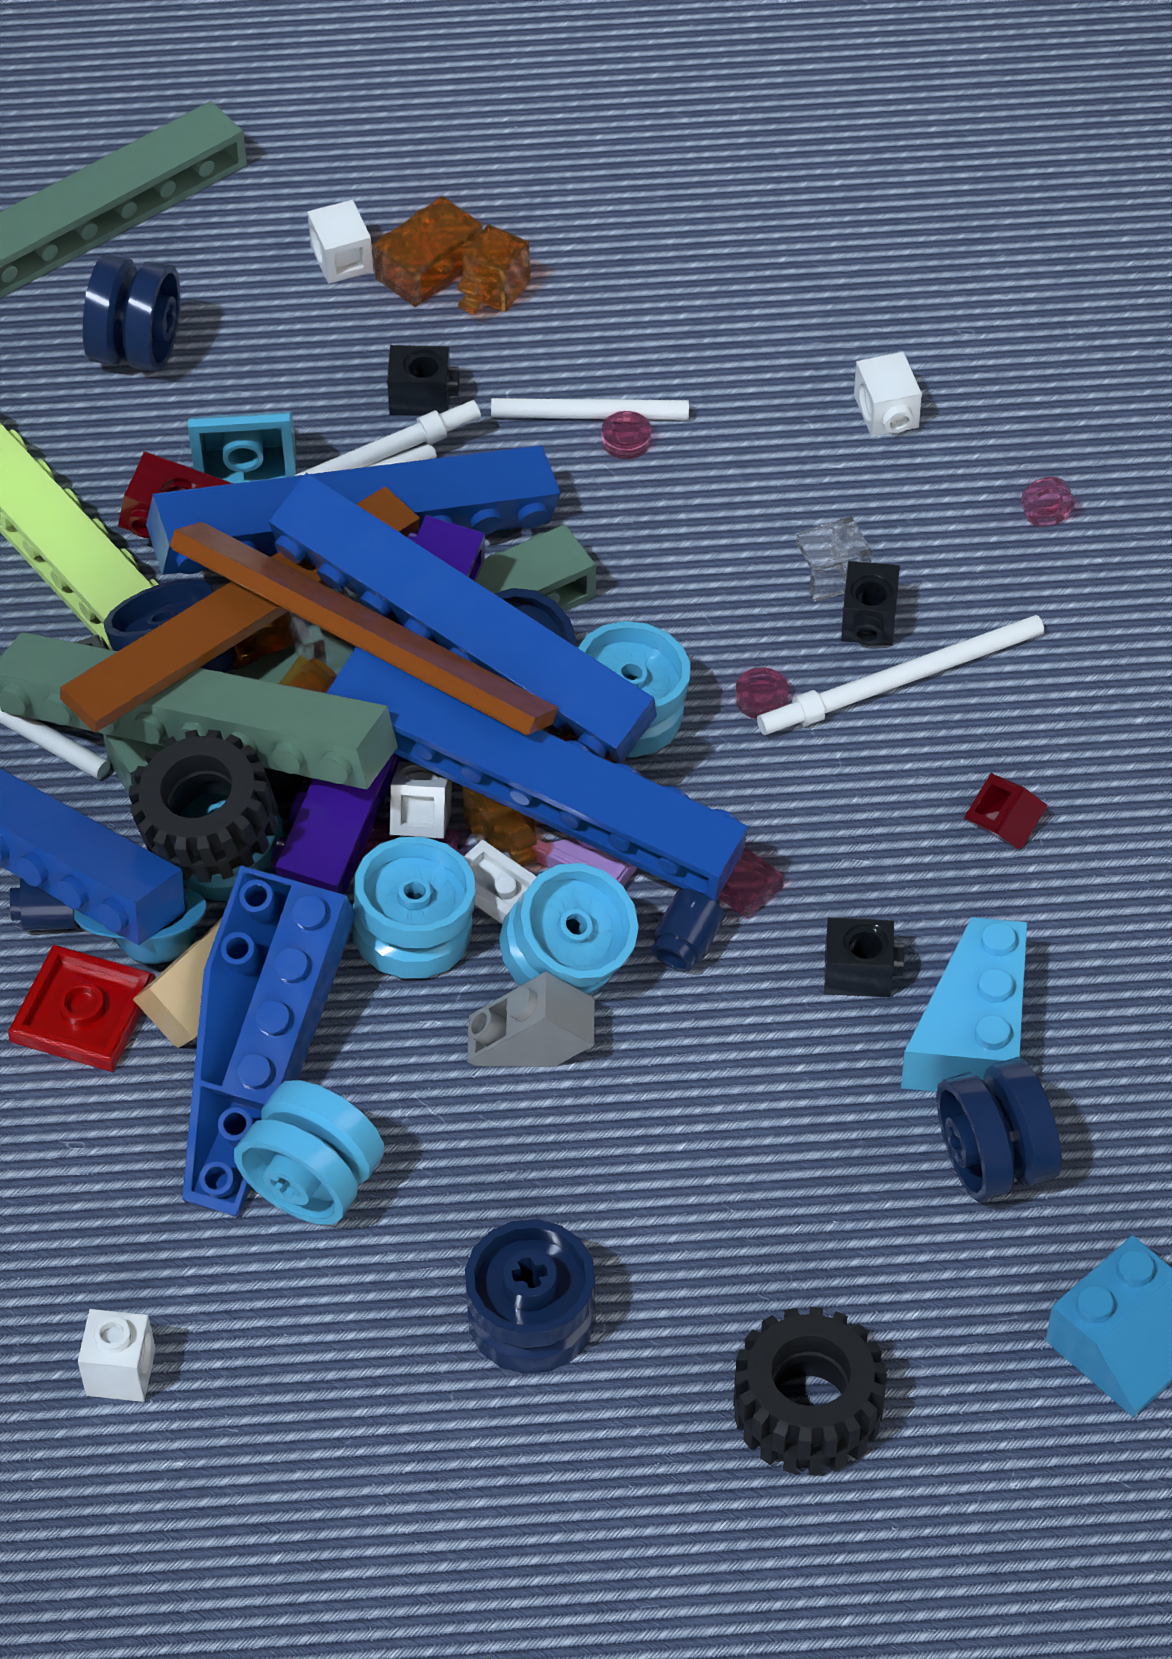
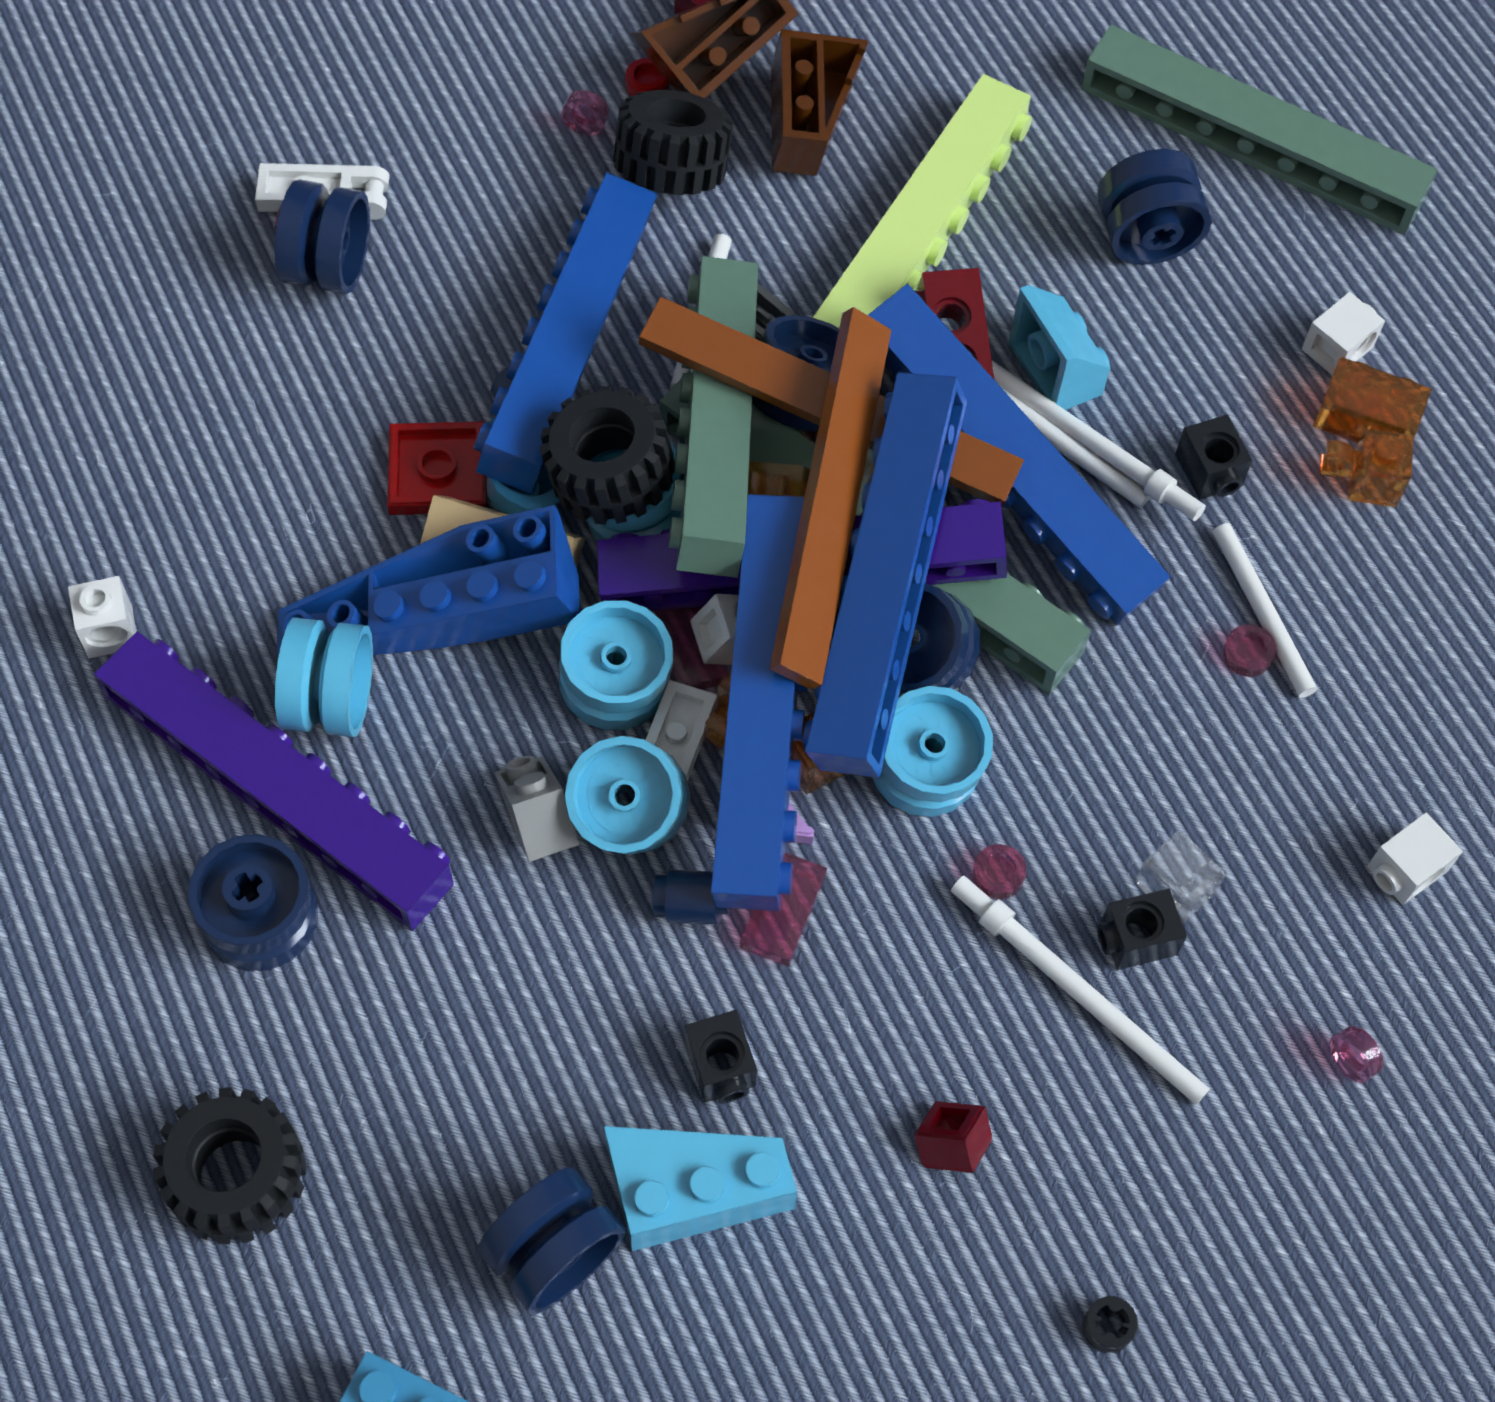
camera: 65 degrees right, 10 degrees up
(383, 1250) = (276, 779): none -> dark purple brick

